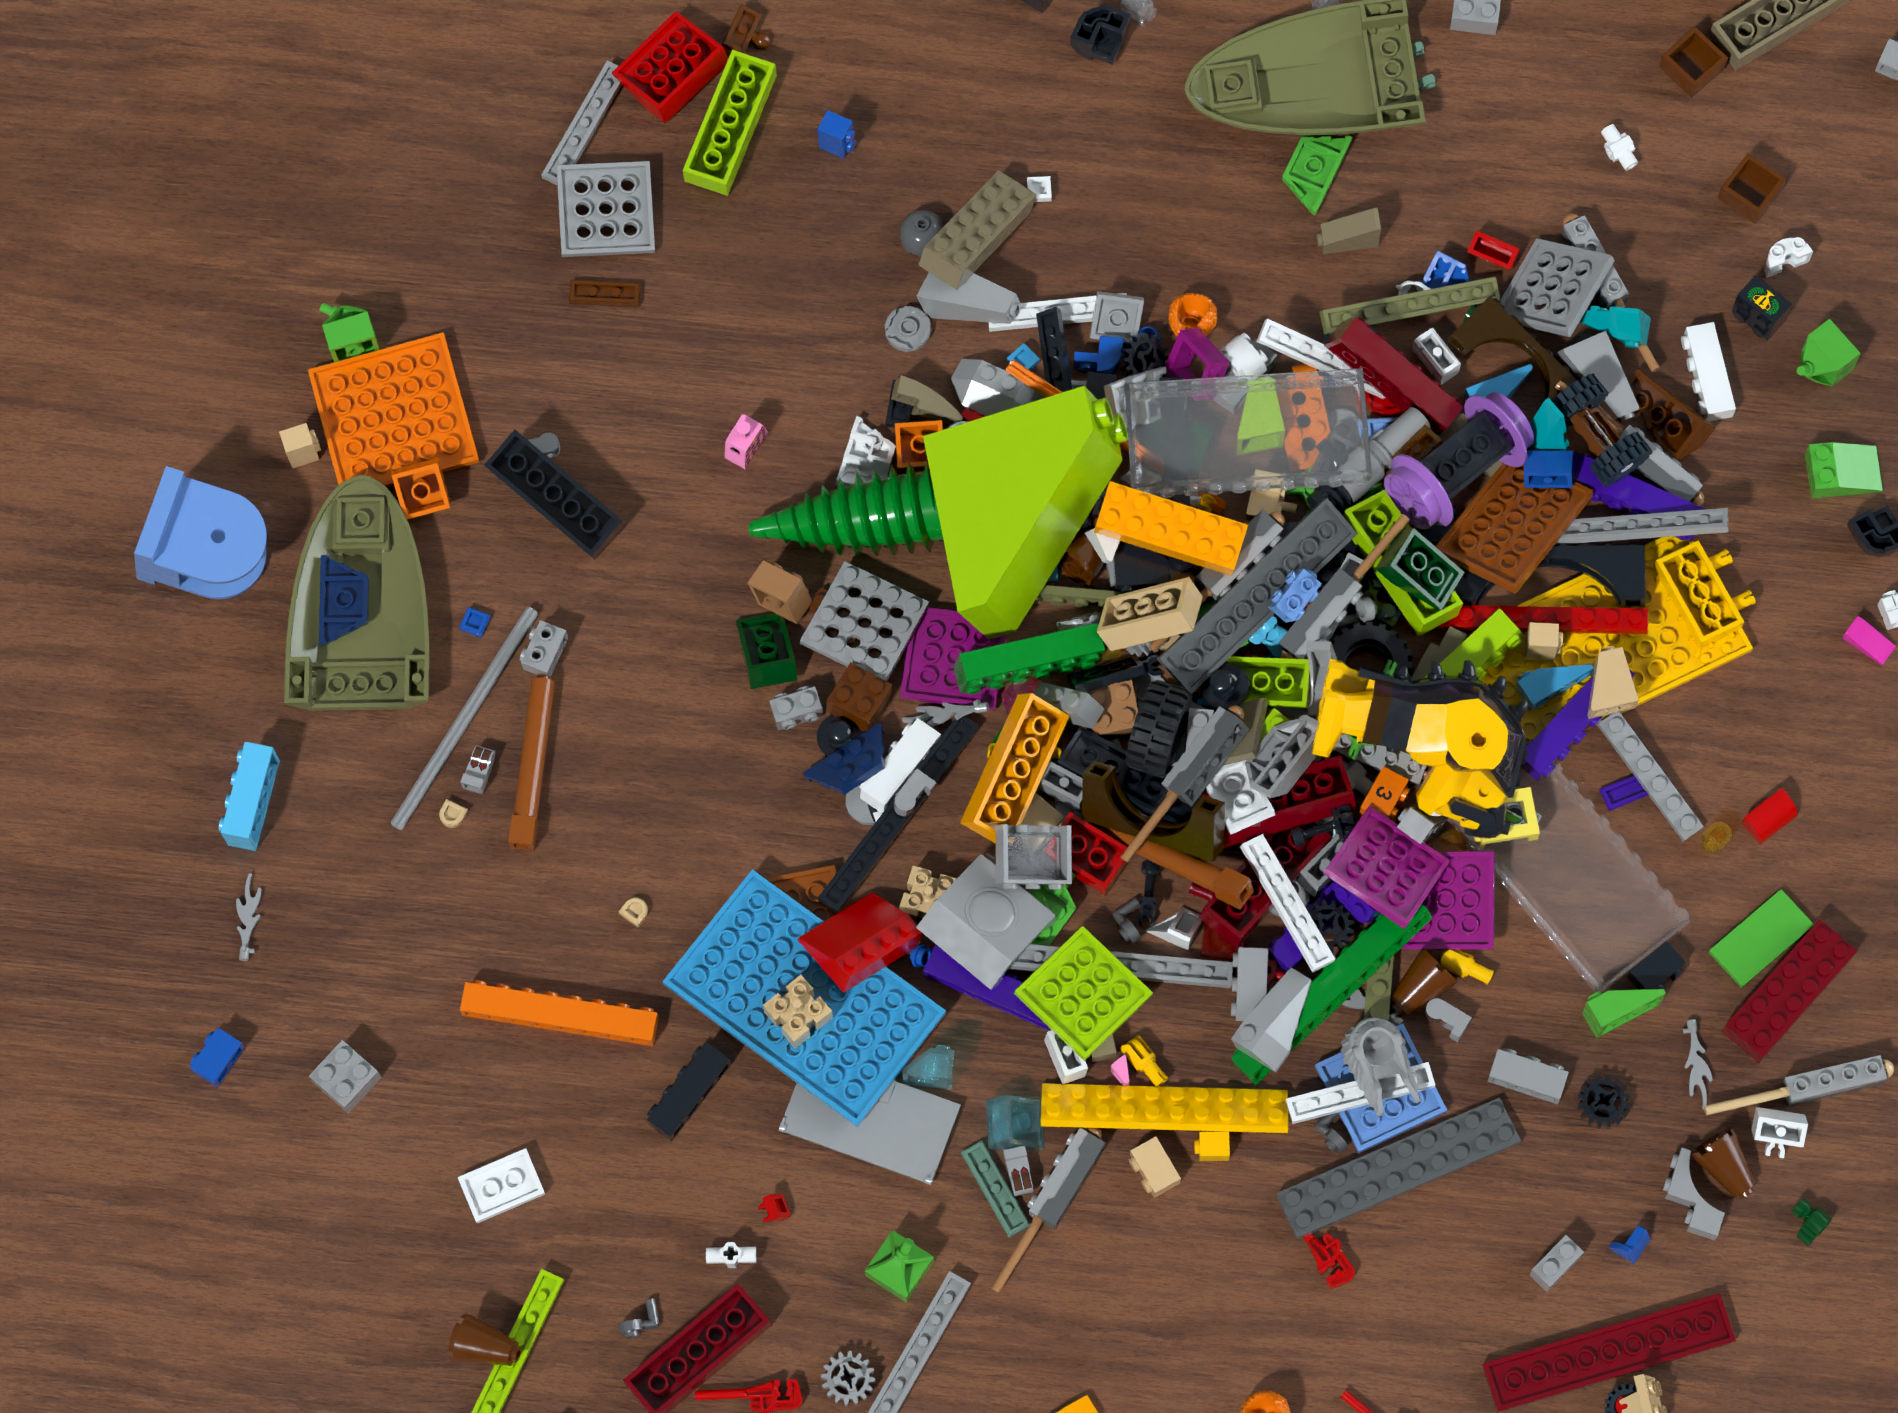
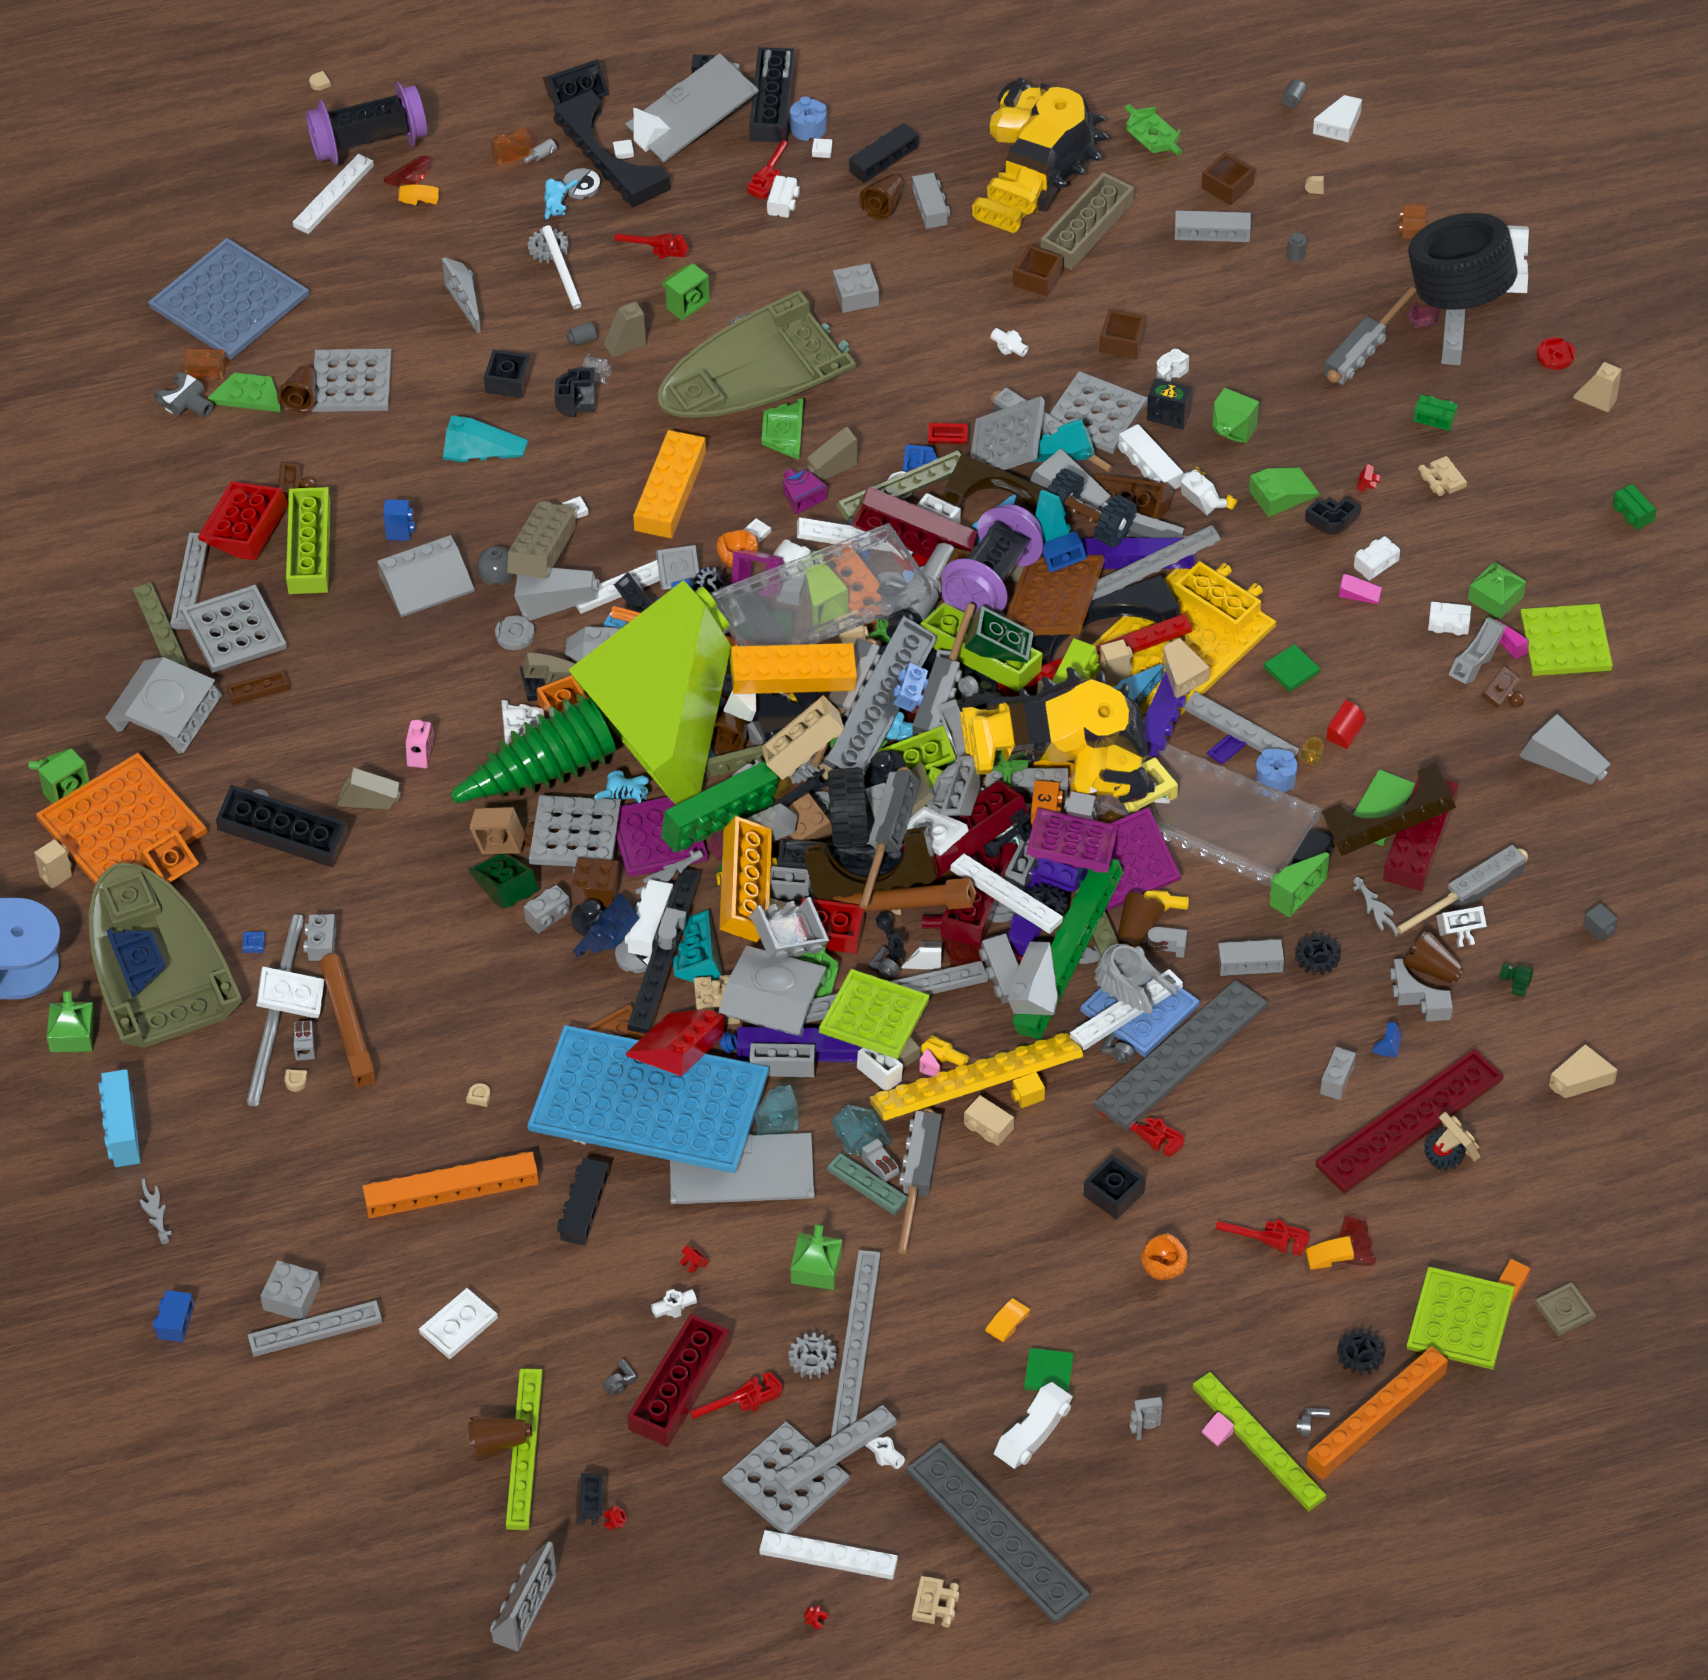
camera: 25 degrees left, 20 degrees down
(244, 657) = (71, 1025): none -> bright green piece
(353, 1131) = (314, 1328): none -> light grey plate
(484, 707) = (290, 992): none -> white plate
(495, 280) = (166, 701): none -> light grey panel
(529, 197) = (158, 623): none -> olive plate
(667, 481) = (368, 791): none -> dark tan slope
(797, 1011) = (650, 1103): tan brick -> none
(839, 218) = (425, 576): none -> light grey slope
(934, 586) = (621, 788): none -> medium azure animal
(934, 832) = (699, 950): none -> teal wedge
(966, 55) = (474, 439): none -> teal wedge
(967, 1004) = (785, 1059): none -> light grey brick
(1155, 197) = (669, 484): none -> light orange brick
(1228, 295) = (758, 529): none -> white tile
(1251, 1307) = (1114, 1187): none -> black brick
(1300, 262) = (803, 490): none -> magenta torso
(1670, 837) = (1276, 769): none -> medium blue brick
(1696, 251) = (1100, 389): none -> light grey piece
(1744, 714) = (1292, 668): none -> green tile
(1745, 442) = (1203, 493): none -> white torso
(1809, 971) = (1356, 832): none -> dark brown arch
(1824, 1372) = (1582, 1073): none -> tan slope

